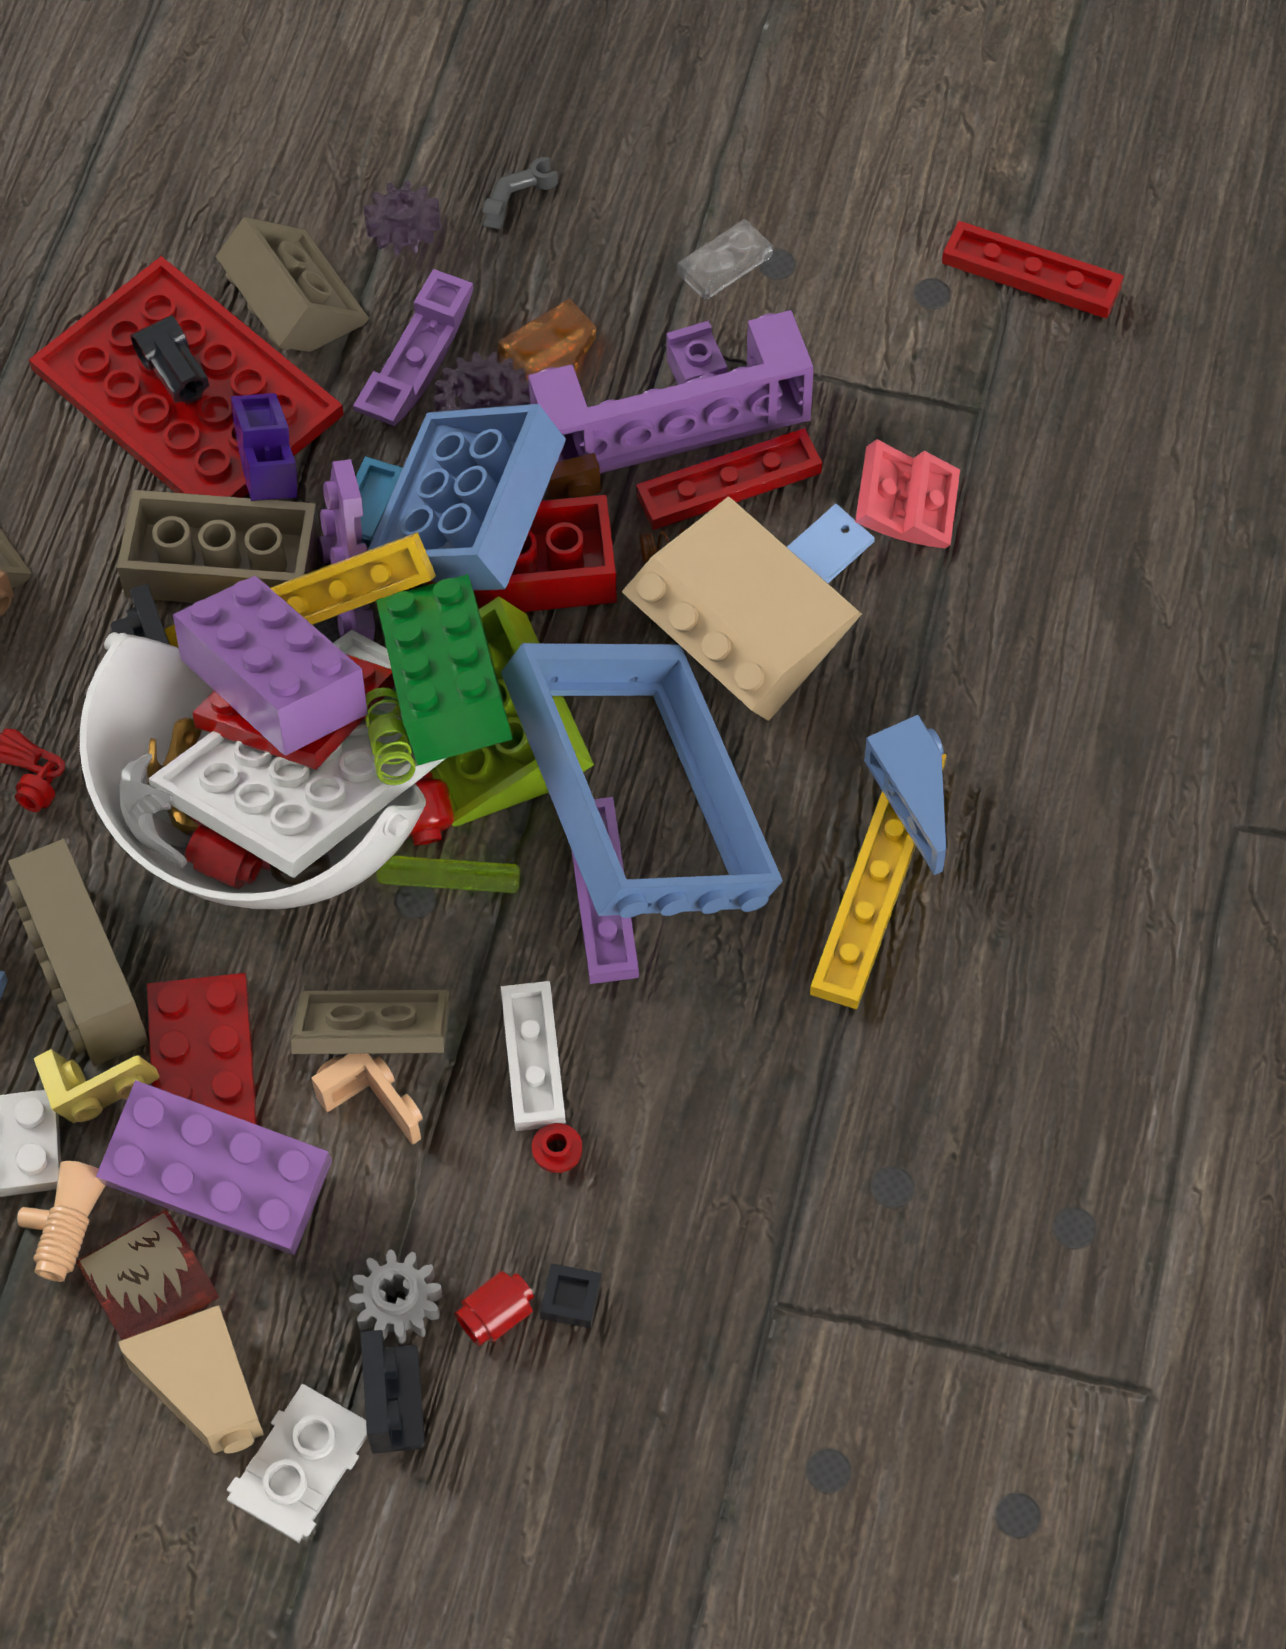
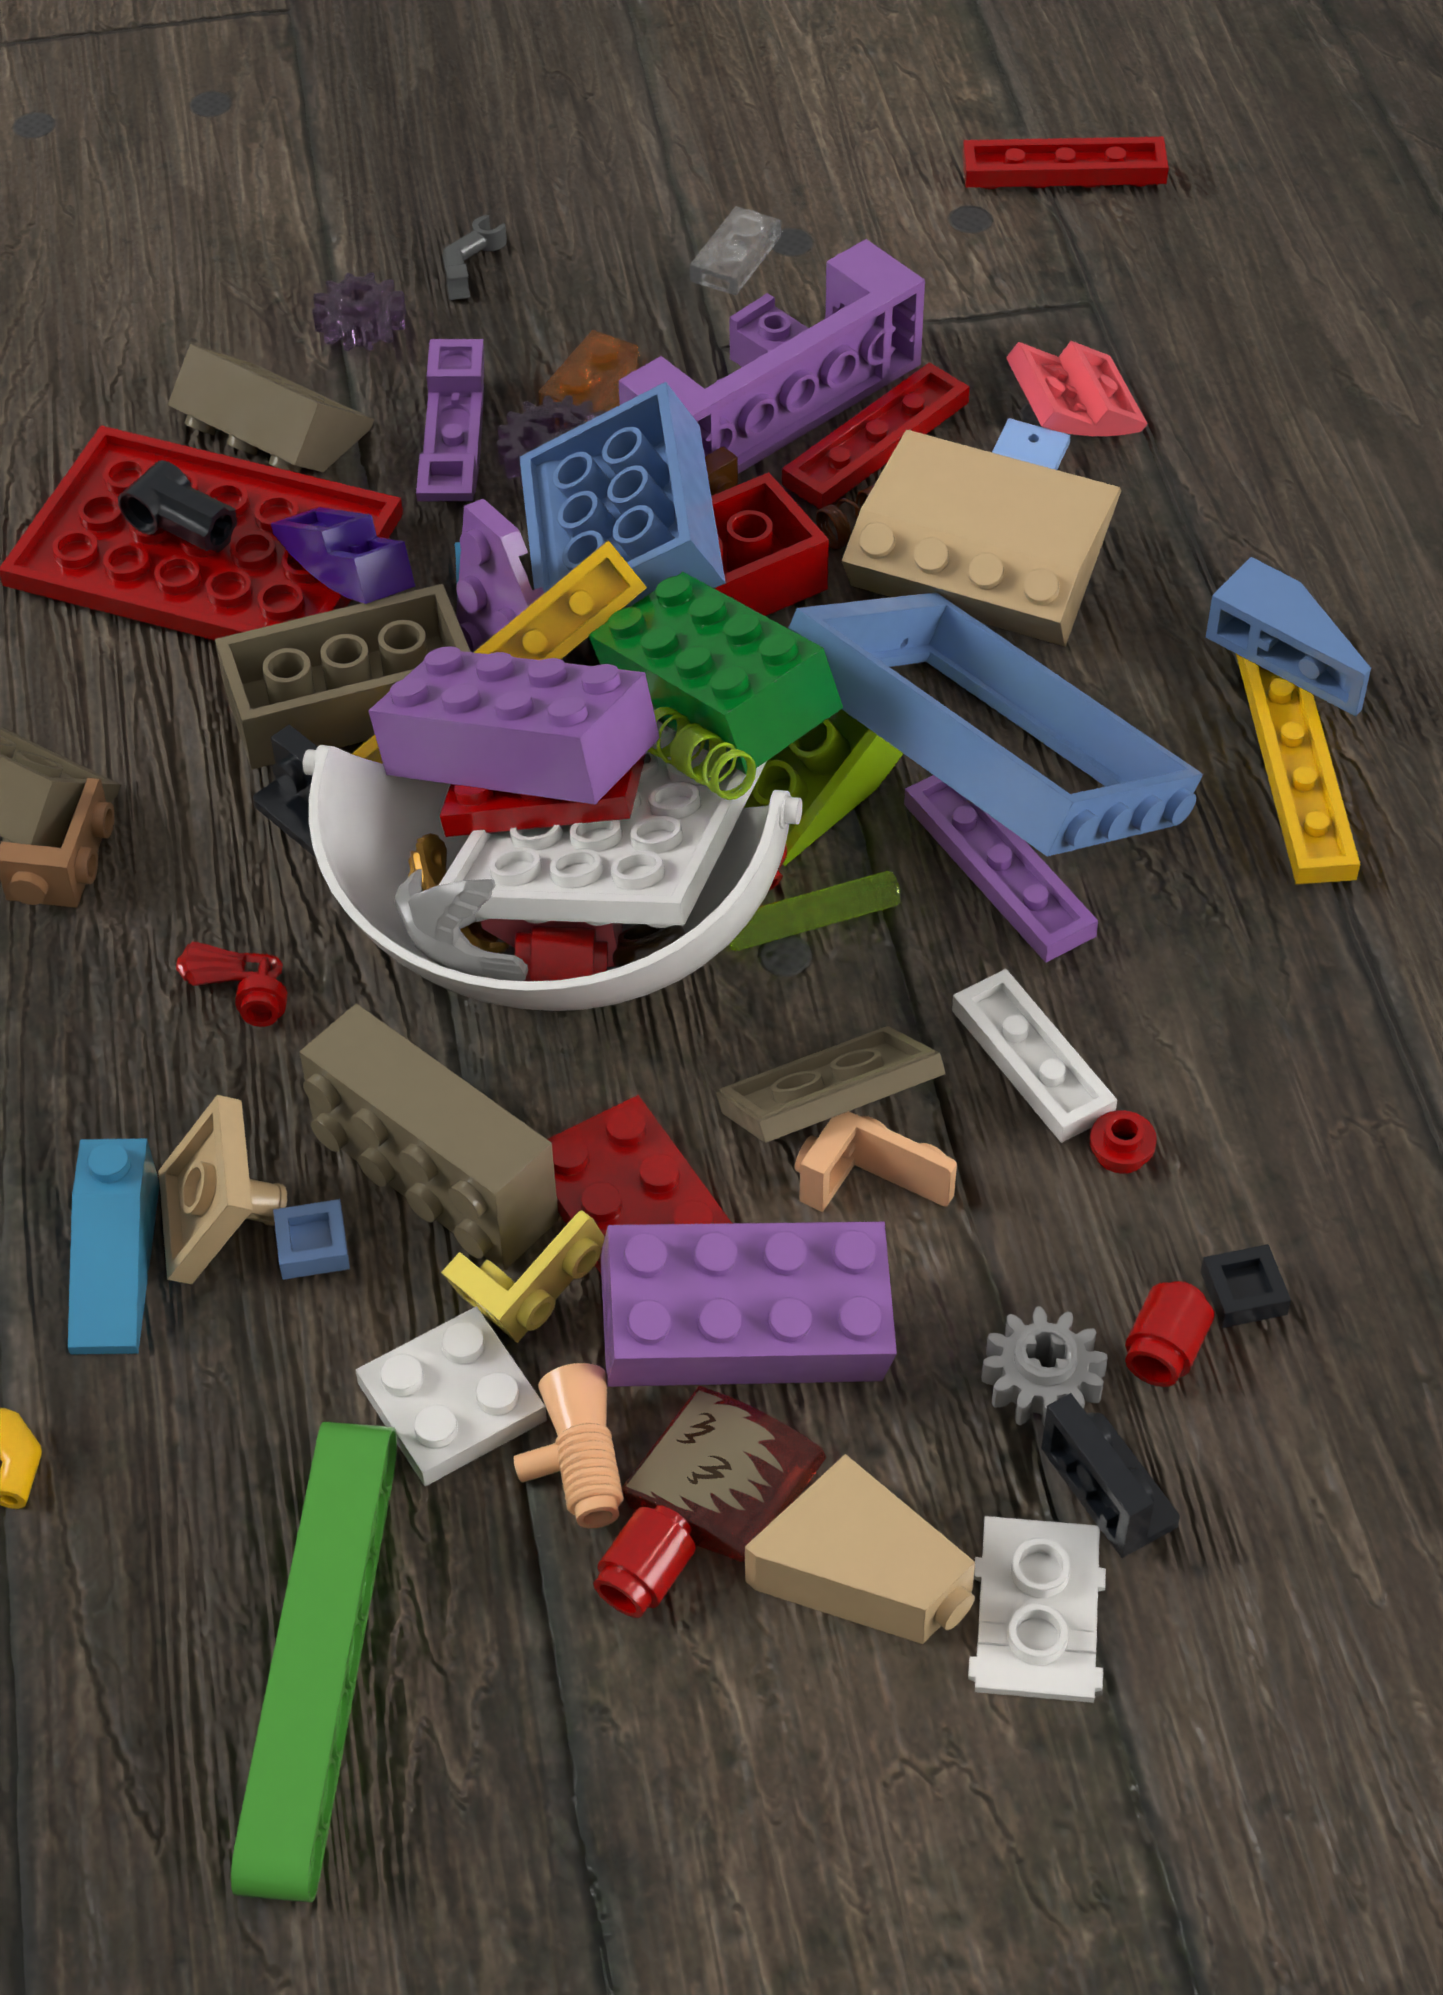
camera: 25 degrees left, 10 degrees down
(61, 1319) = (644, 1560): none -> red brick

